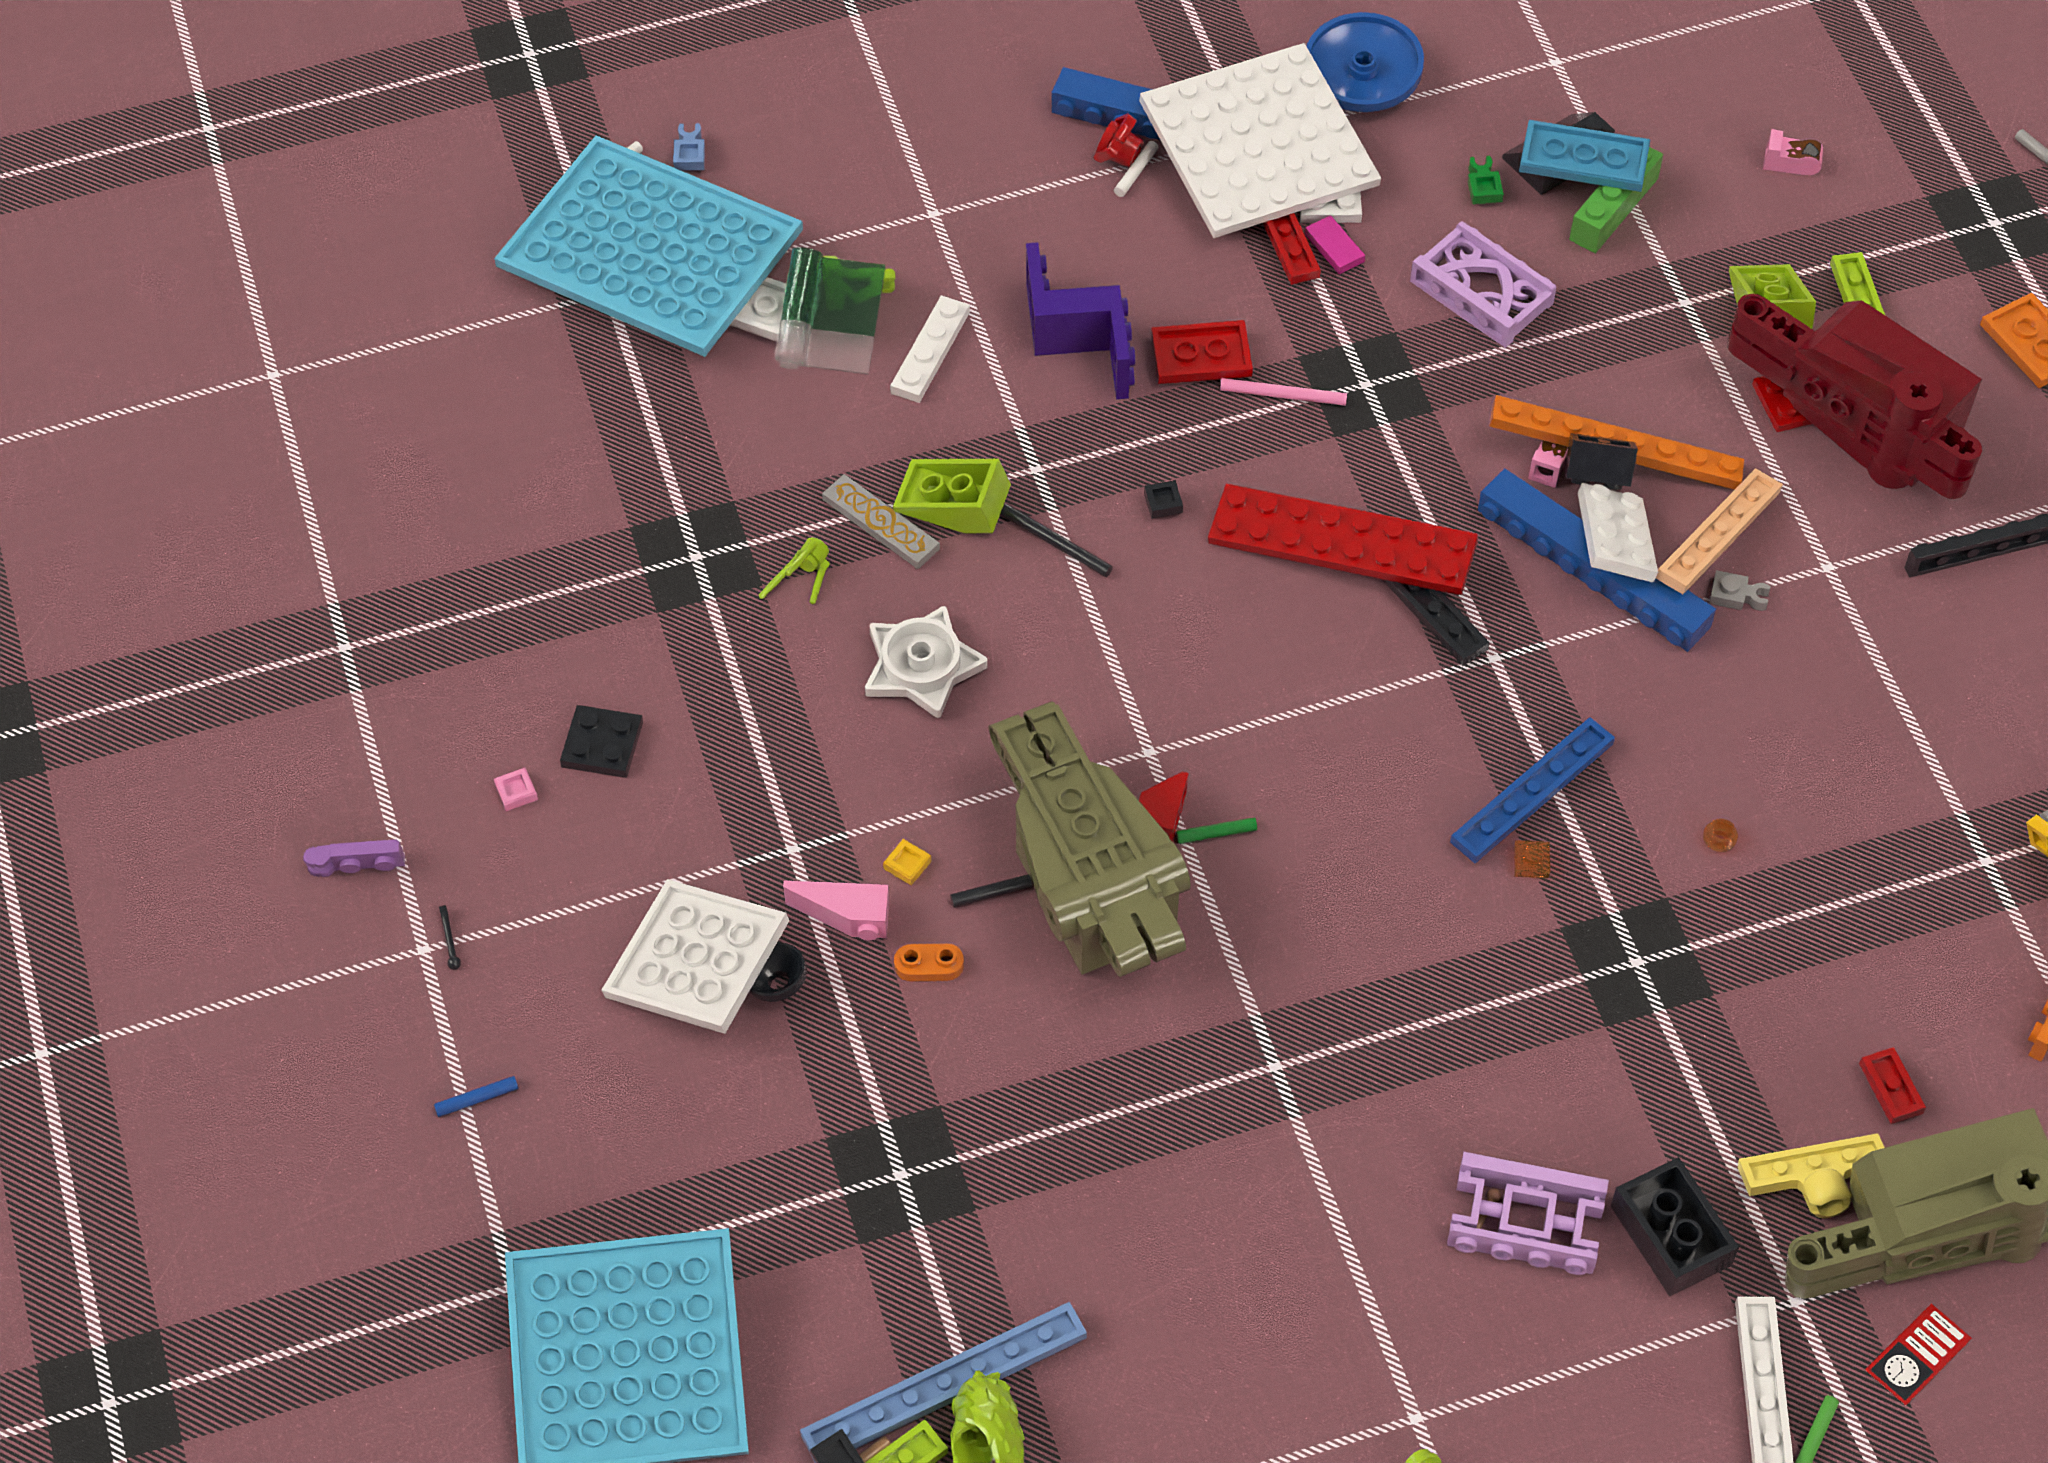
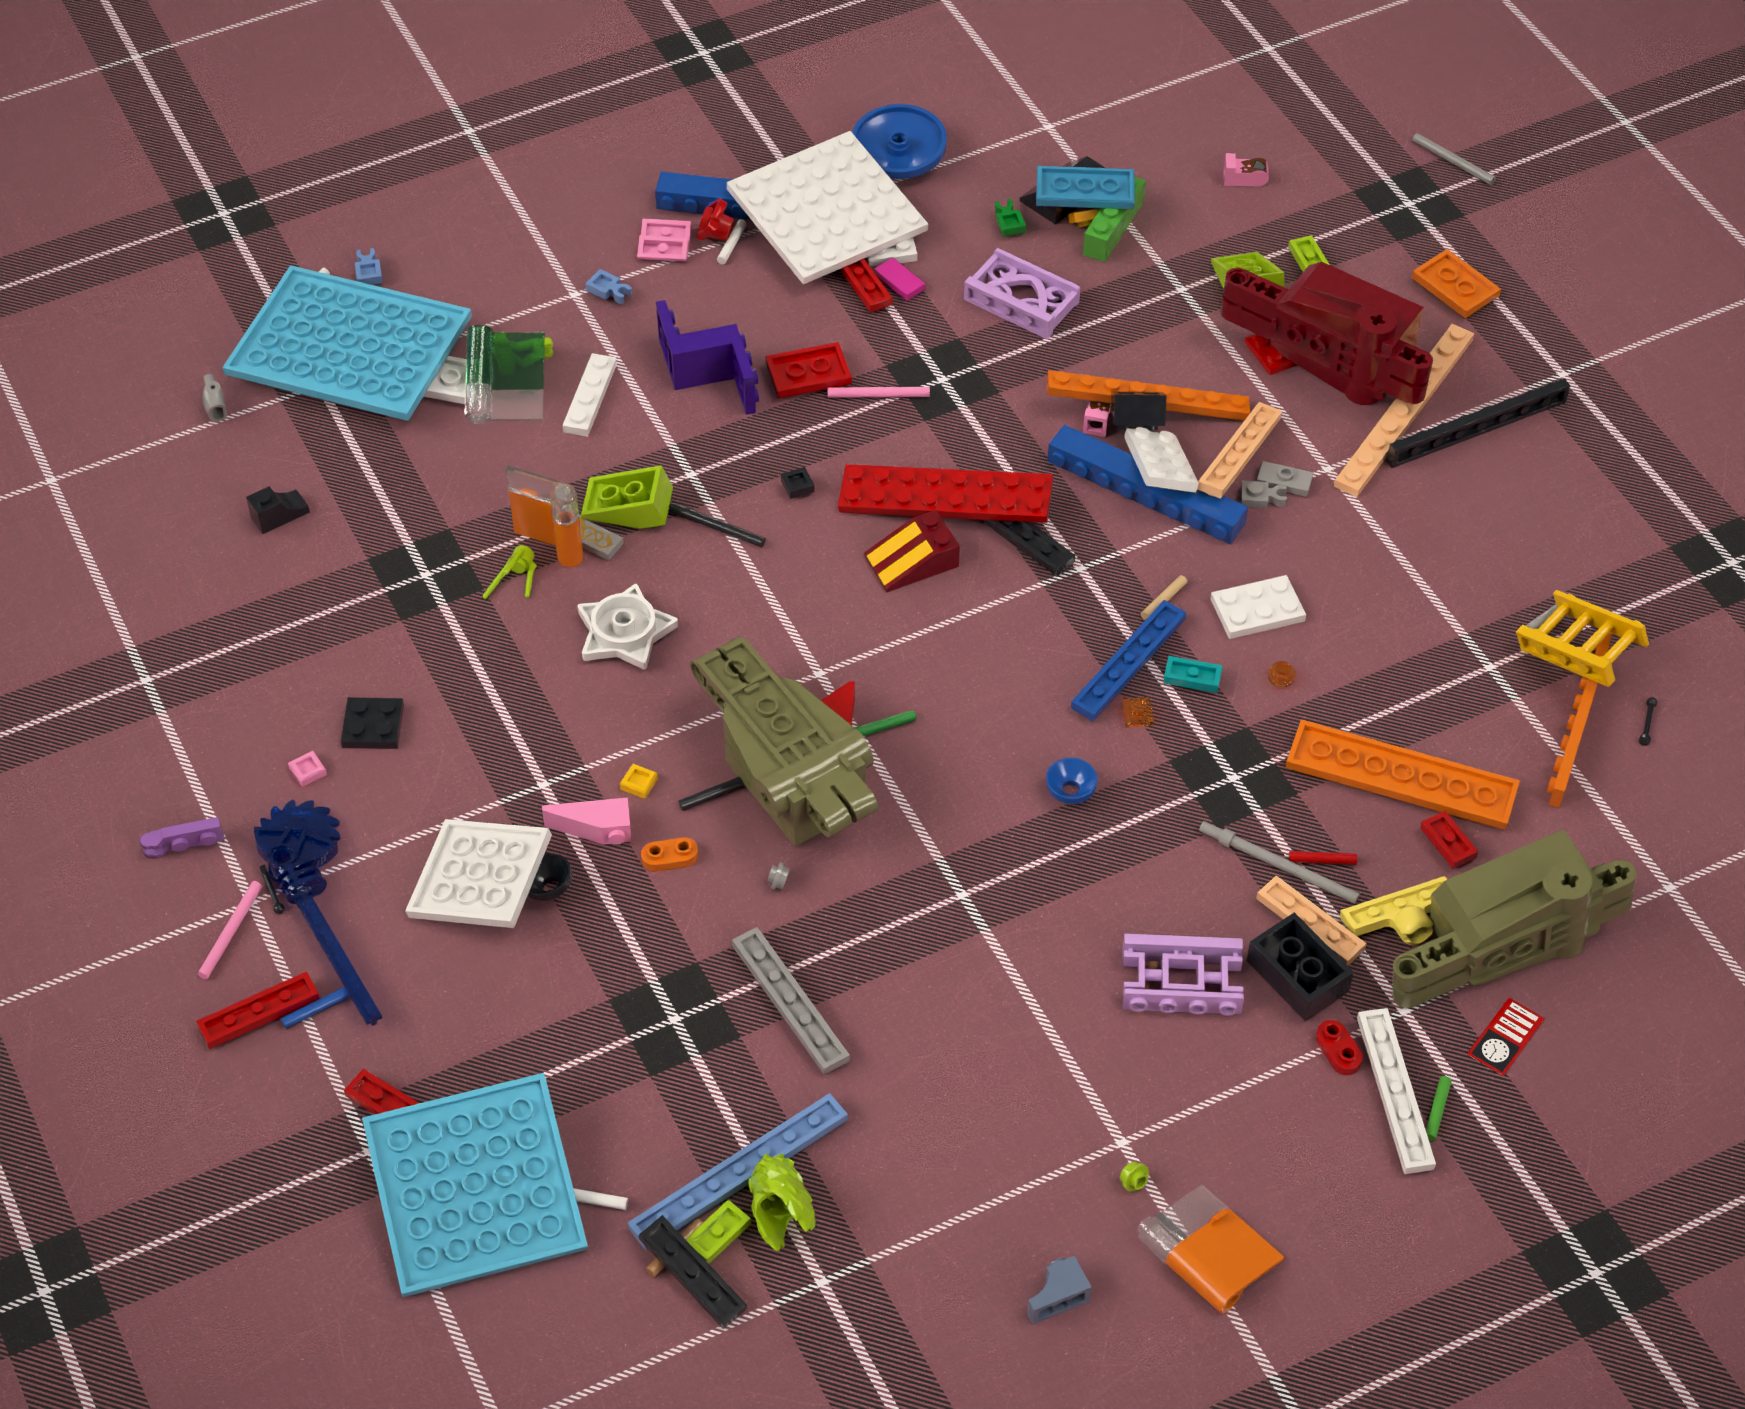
camera: 10 degrees left, 5 degrees down
(392, 982) = (229, 930): none -> bright pink bar
(408, 1090) = (257, 1010): none -> red plate
(478, 297) = (213, 399): none -> light grey piece
(494, 882) = (294, 847): none -> clear blue piece
(529, 448) = (275, 509): none -> black arch
(533, 1221) = (376, 1094): none -> red plate
(773, 1392) = (601, 1199): none -> white piece
(849, 503) = (546, 512): none -> door
(974, 207) = (606, 285): none -> medium blue plate
(1043, 1174) = (791, 1001): none -> light grey plate
(1054, 156) = (664, 240): none -> bright pink slope
(1054, 1011) = (778, 876): none -> light grey plate
(1291, 610) = (914, 552): none -> dark red slope
(1433, 927) = (1071, 772): none -> blue piece
(1577, 191) = (1083, 218): none -> light orange plate
(1592, 710) = (1166, 595): none -> tan piece
(1609, 819) = (1192, 674): none -> teal plate
(1616, 1042) = (1228, 838): none -> light grey bar
(1704, 1335) = (1337, 1045): none -> red plate
(1707, 741) = (1258, 607): none -> white plate
(1721, 1188) = (1286, 900): none -> light nougat plate
(1729, 1085) = (1322, 857): none -> red piece
(1782, 577) = (1295, 480): none -> light grey plate
(1850, 990) = (1403, 774): none -> orange plate
(1933, 509) = (1401, 415): none -> light nougat plate

